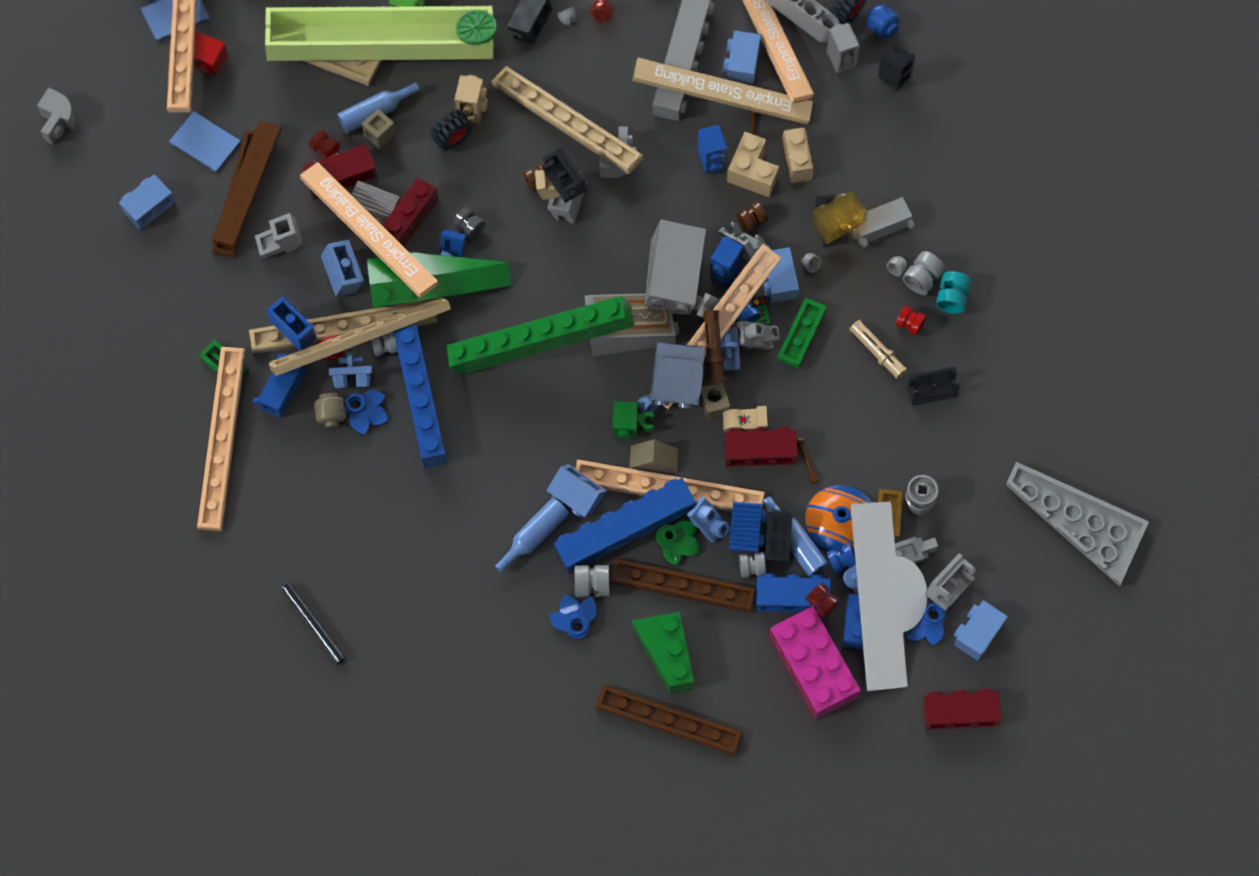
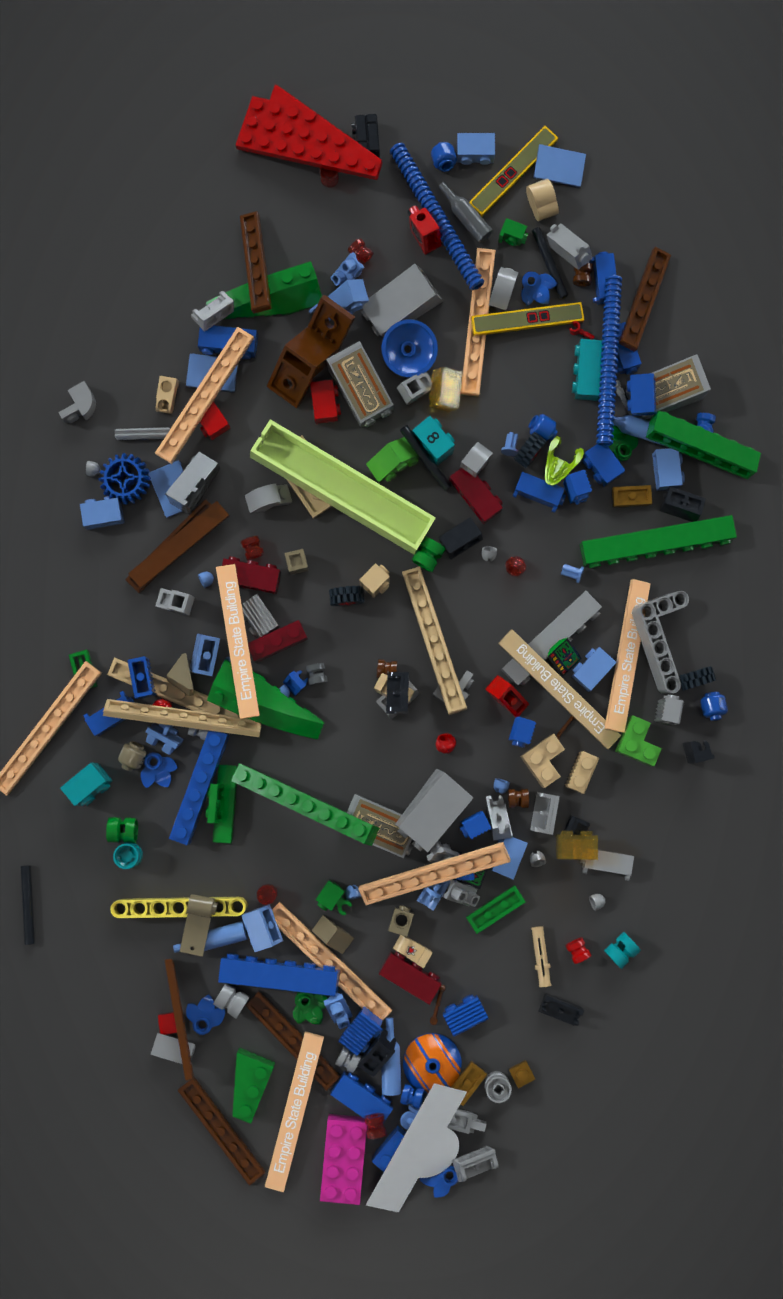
camera: 30 degrees right, 15 degrees up
(109, 167) = (92, 468): none -> light grey hinge
(139, 107) = (141, 433): none -> light grey axle
(141, 55) = (166, 394): none -> tan leg
(163, 145) = (123, 463): none -> blue gear
(223, 119) = (192, 483): none -> wedge
(295, 202) = (206, 579): none -> medium blue hinge
(301, 460) = (87, 784): none -> teal brick
(307, 89) = (268, 497): none -> light grey brick
(332, 302) = (180, 675): none -> dark tan slope
(367, 485) = (115, 833): none -> green wheel
(385, 101) = (304, 540): medium blue piece -> none
(389, 505) = (128, 855): none -> teal wheel
(456, 400) = (222, 804): none -> green bracket
(471, 535) = (169, 905): none -> light yellow beam
(476, 27) = (412, 529): green wheel -> none
(506, 521) = (197, 924): none -> dark tan door
(508, 48) = (428, 554): none -> green wheel
(542, 647) = (167, 1023): none -> red tile
(550, 627) = (179, 1019): none -> reddish brown tile
(560, 460) = (269, 893): none -> clear red wheel
(564, 668) = (169, 1049): none -> light grey hinge
(644, 209) = (445, 743): none -> red piece
(674, 130) = (507, 696): none -> red slope
(677, 374) = (384, 892): sand blue brick -> none
(705, 58) = (563, 656): none -> piece
(713, 341) = (417, 896): reddish brown pin -> none
(726, 216) = (501, 785): none -> medium blue hinge
(731, 650) = (294, 1111): none -> light nougat tile
(788, 215) = (544, 813): none -> light grey hinge
(833, 101) = (633, 744): none -> bright green brick
(841, 449) = (464, 1015): none -> blue brick
(925, 270) = (612, 921): light grey wheel -> none
(939, 471) = (522, 1074): none -> pearl gold plate
(961, 709) = (422, 1257): dark red brick -> none
(980, 630) = (472, 1209): medium blue brick -> none
(1091, 525) = (602, 1185): light grey wing -> none

